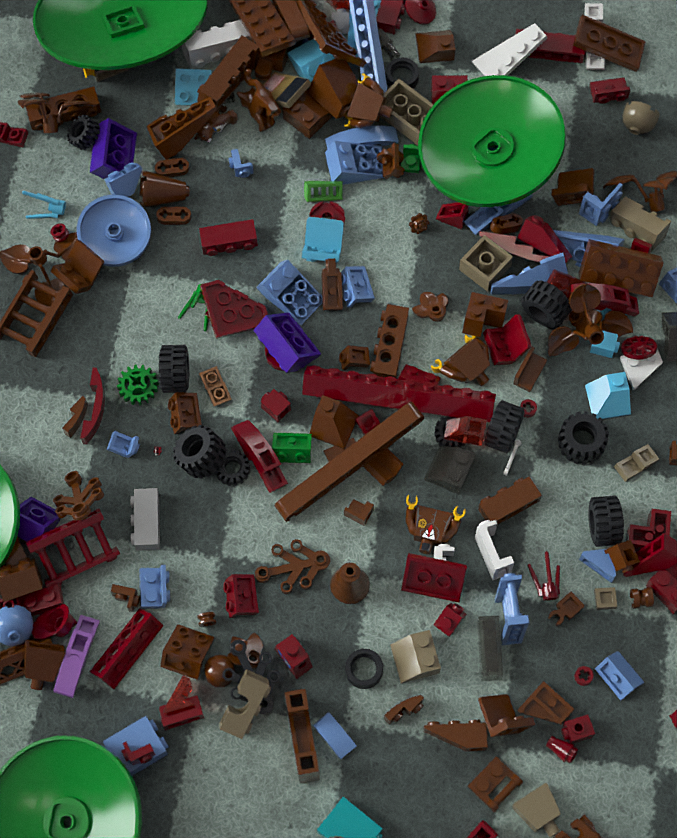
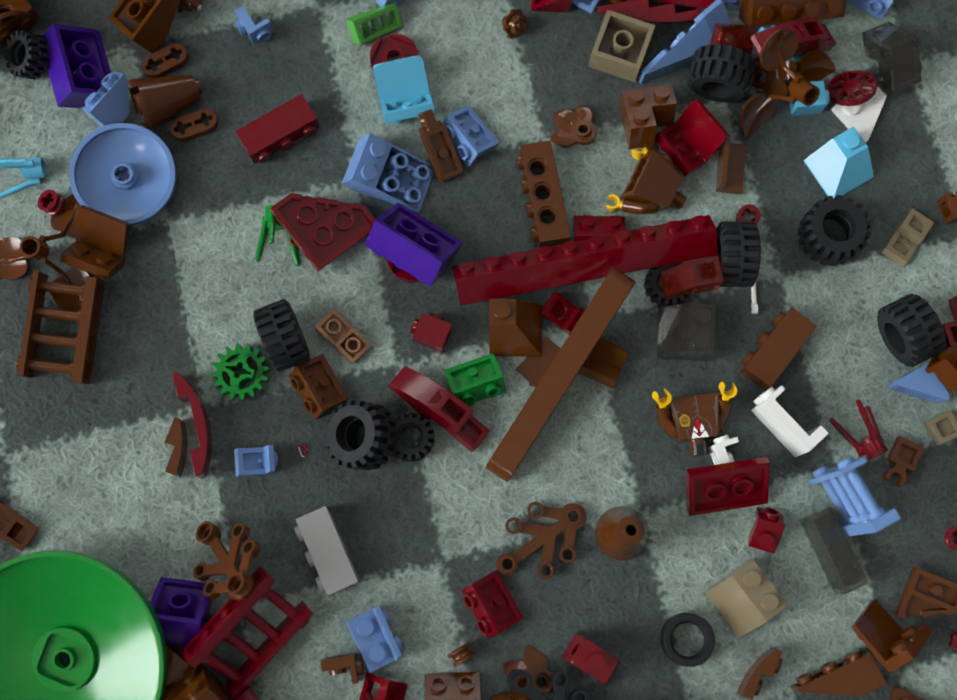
camera: 25 degrees left, 10 degrees up
(354, 356) = (505, 230): reddish brown bracket -> none
(359, 512) = (595, 432): reddish brown panel -> none

